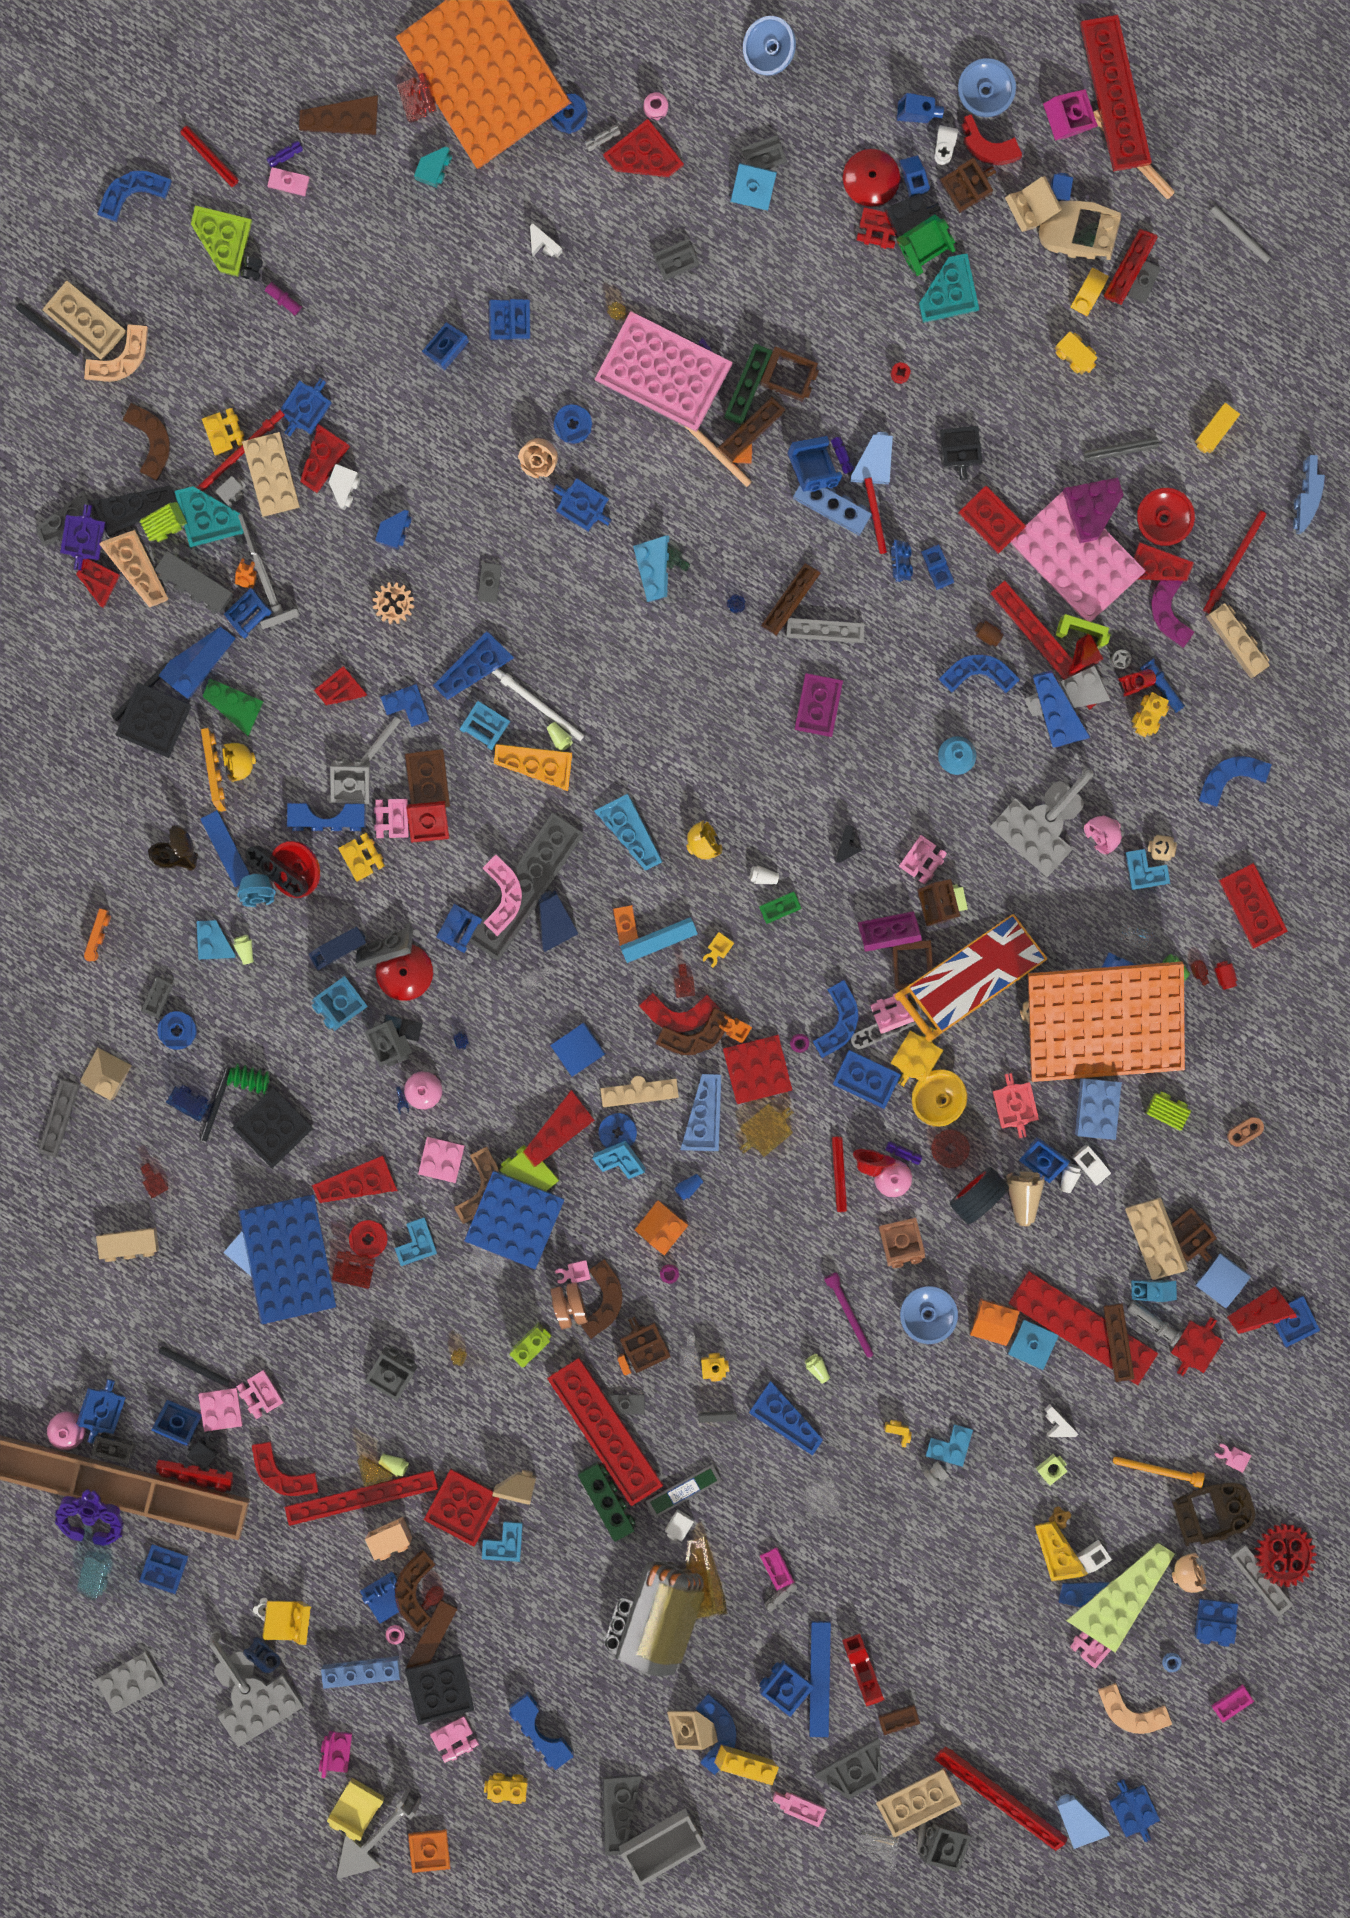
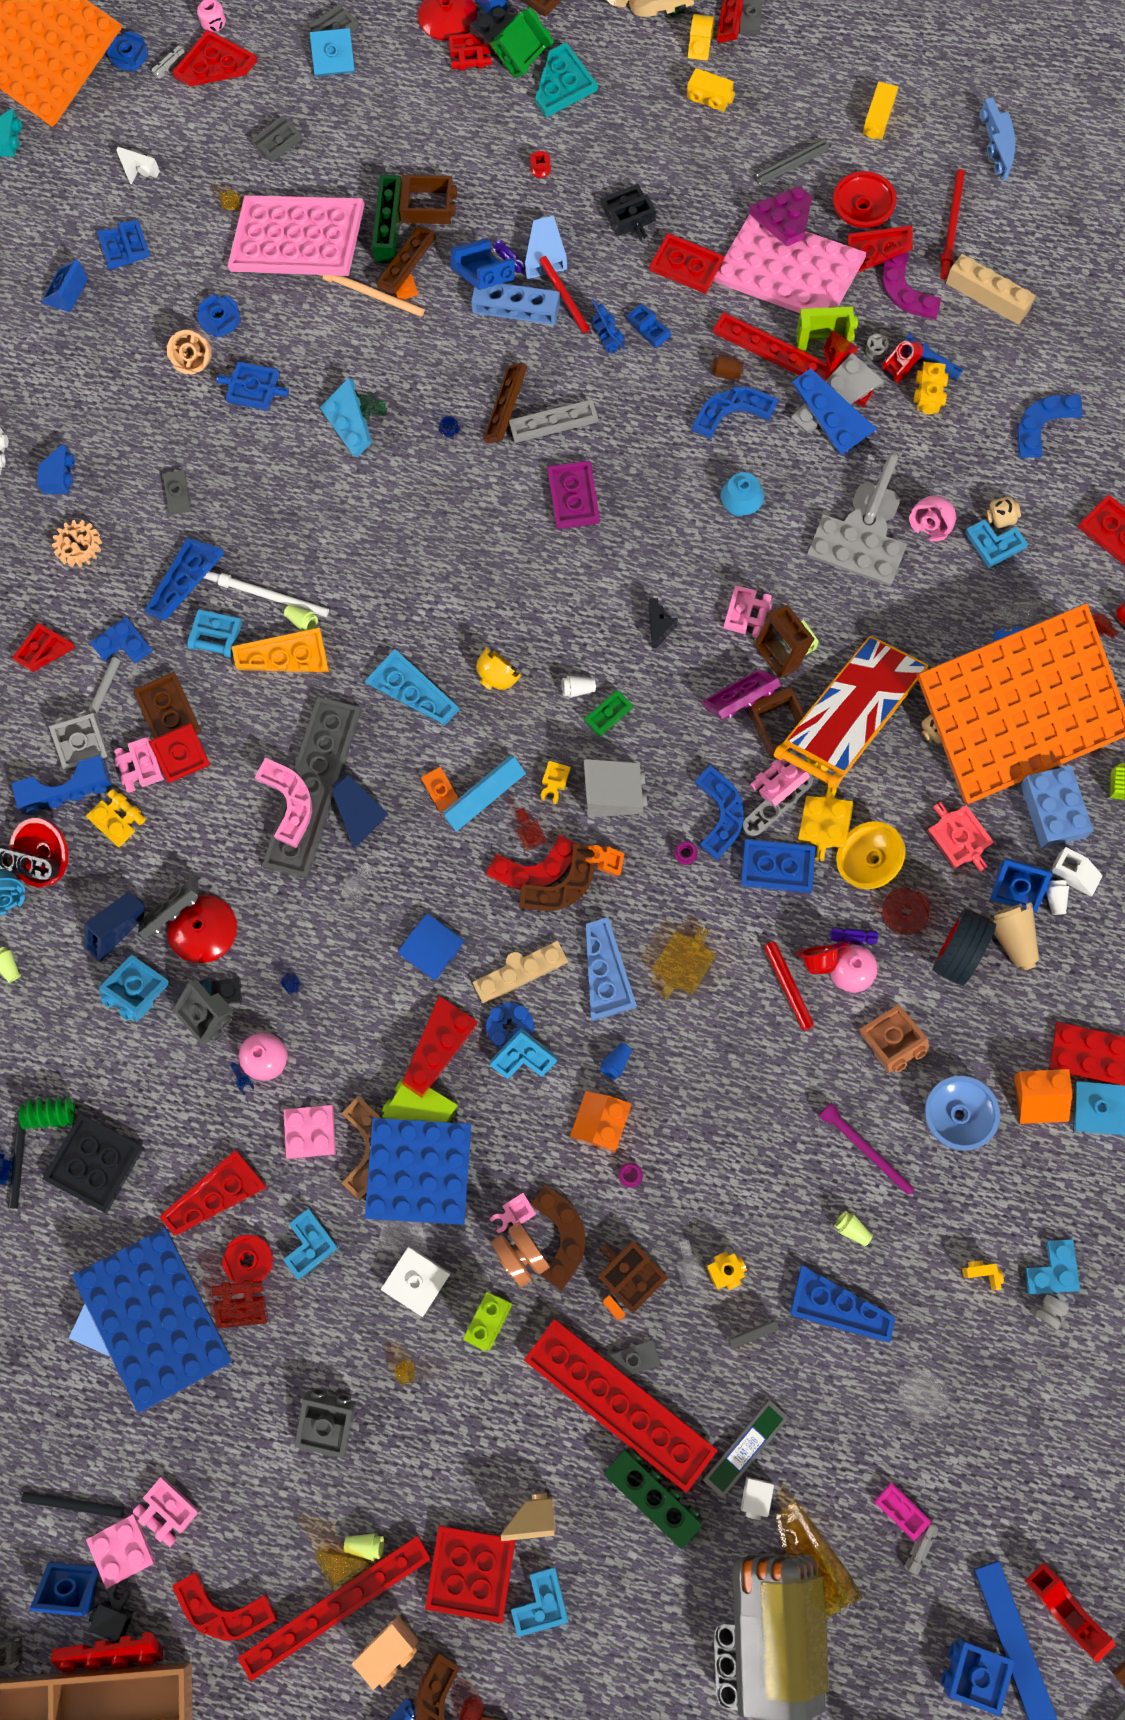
camera: 15 degrees left, 15 degrees down
(454, 926) = (245, 853): blue plate -> none
(486, 1296) = (415, 1281): none -> white plate
(757, 1069) = (648, 899): red plate -> none
(762, 974) = (614, 788): none -> light grey slope

